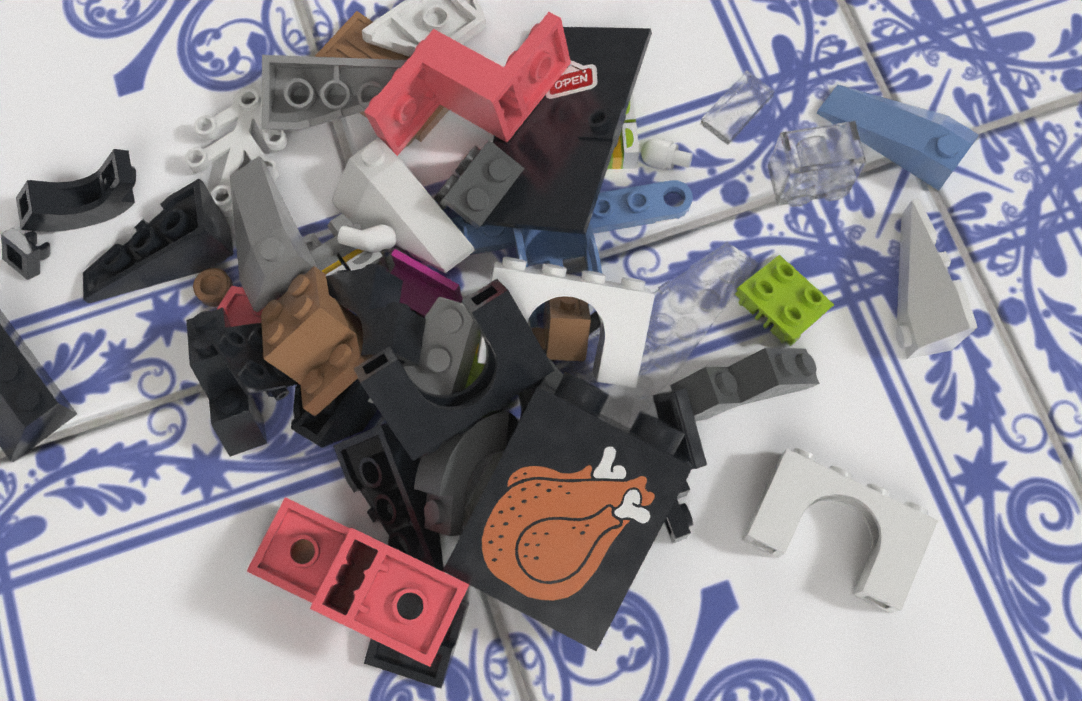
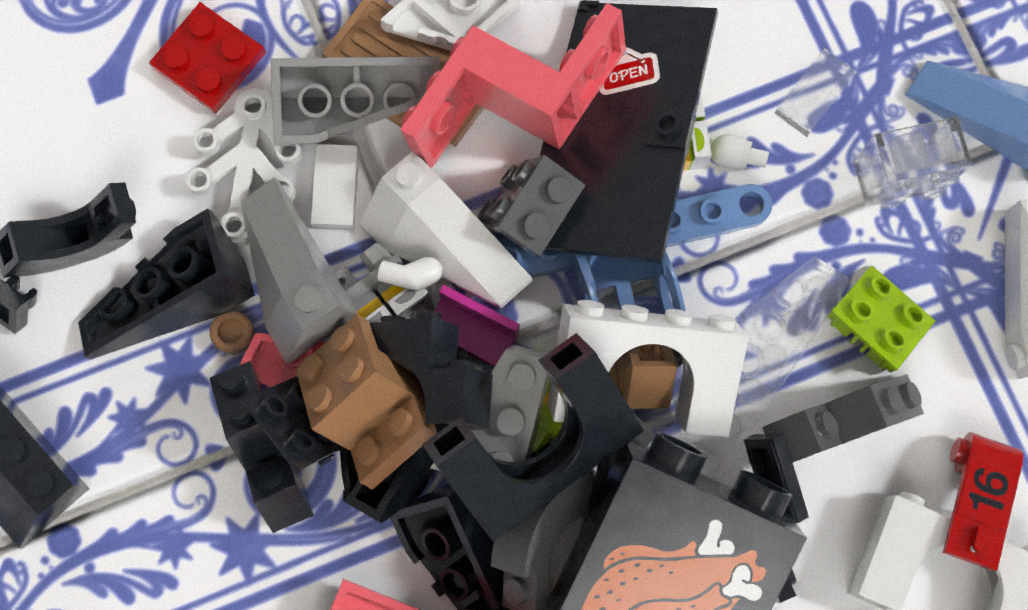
camera: 10 degrees left, 5 degrees up
(215, 61) = (207, 57): none -> red plate
(313, 169) = (334, 186): none -> white tile
(866, 457) = (983, 499): none -> red door

